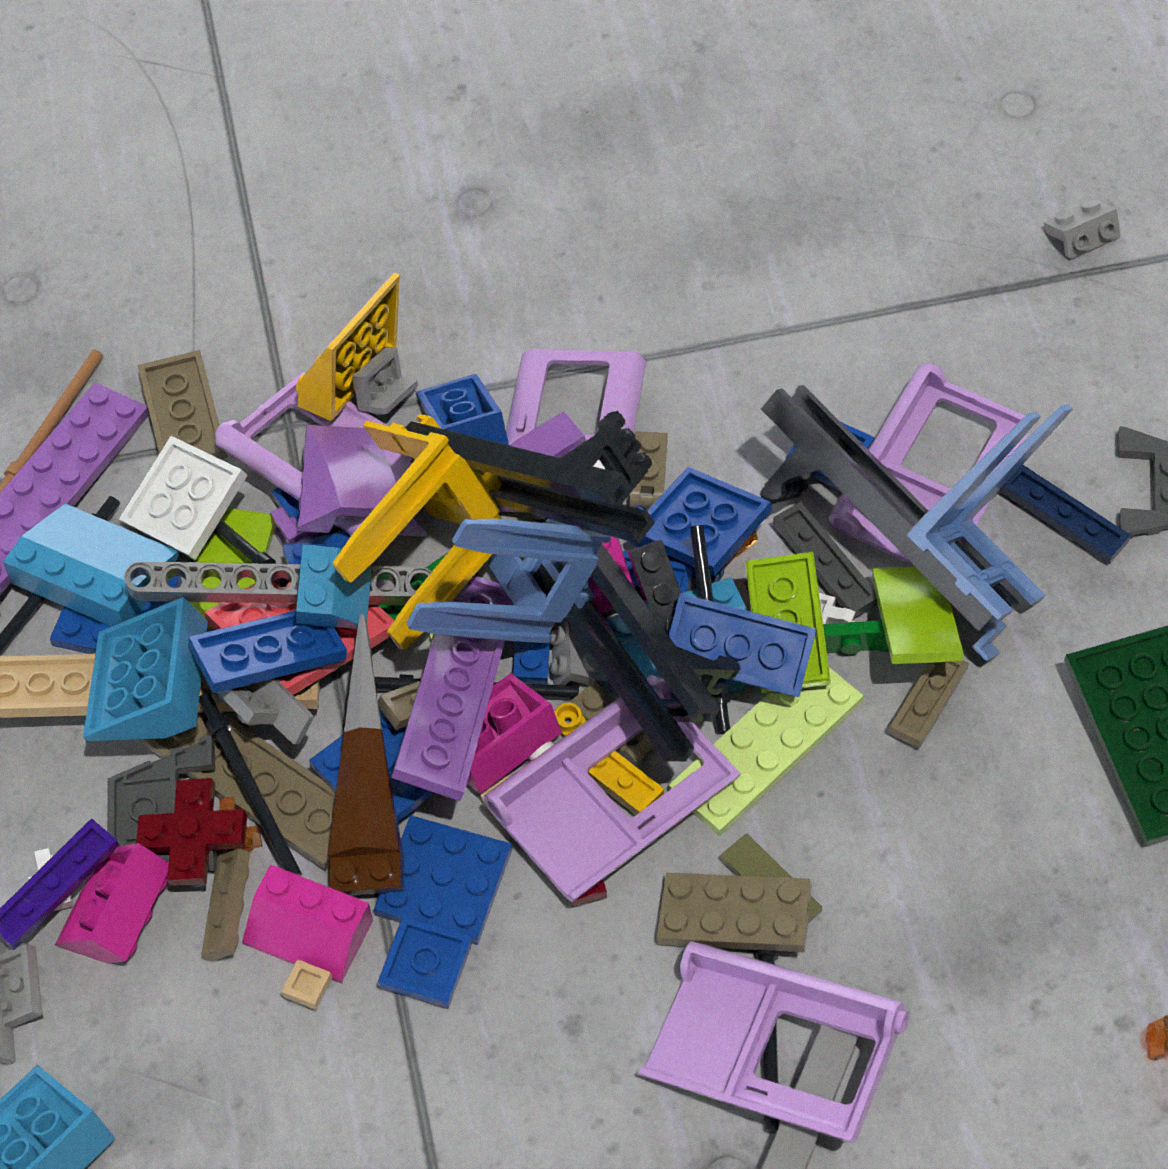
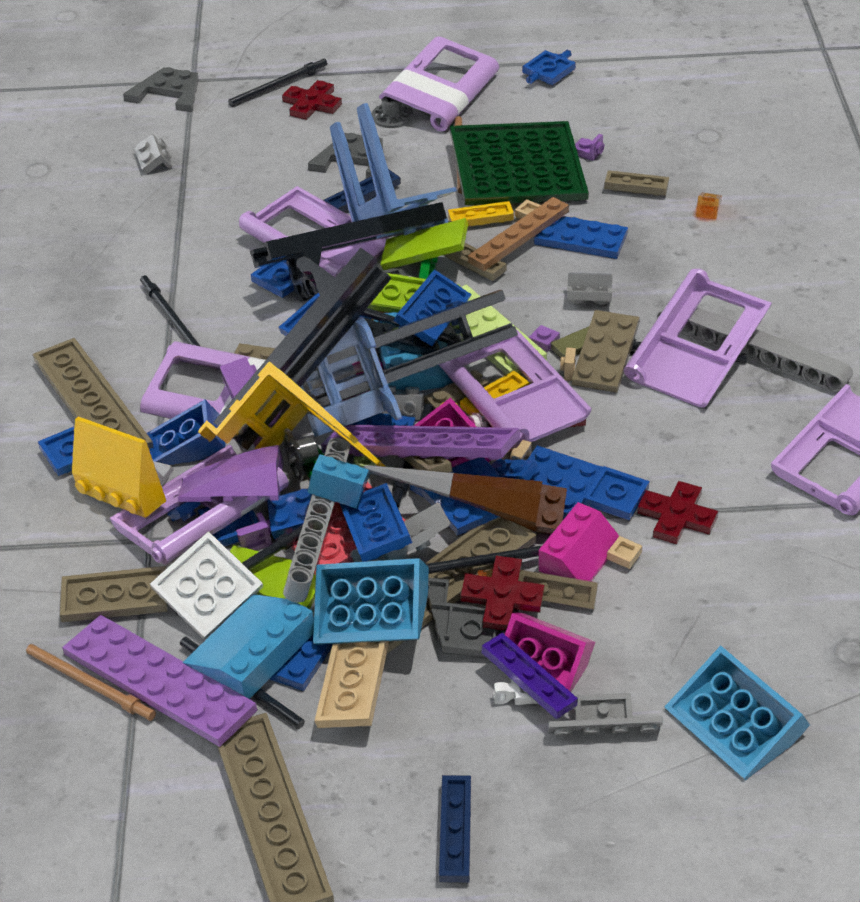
camera: 80 degrees left, 15 degrees down
(403, 1052) = (677, 512): none -> dark red plate
(429, 300) = (59, 450): none -> blue plate
(429, 547) = (302, 450): none -> dark grey wheel
(442, 818) = (515, 468): none -> blue plate
(479, 822) = (522, 452): none -> tan plate
(521, 298) = (86, 389): none -> dark tan plate
(696, 861) = (567, 363): none -> tan plate
(762, 308) = (155, 293): none -> black bar
(763, 824) = (544, 336): none -> medium lavender plate
(885, 872) = (589, 287): none -> light grey bracket
(998, 748) = (518, 234): none -> medium nougat plate
(1039, 847) = (583, 237): none -> blue plate
(1049, 689) = (483, 214): none -> yellow plate
(1077, 758) = (525, 208): none -> tan plate

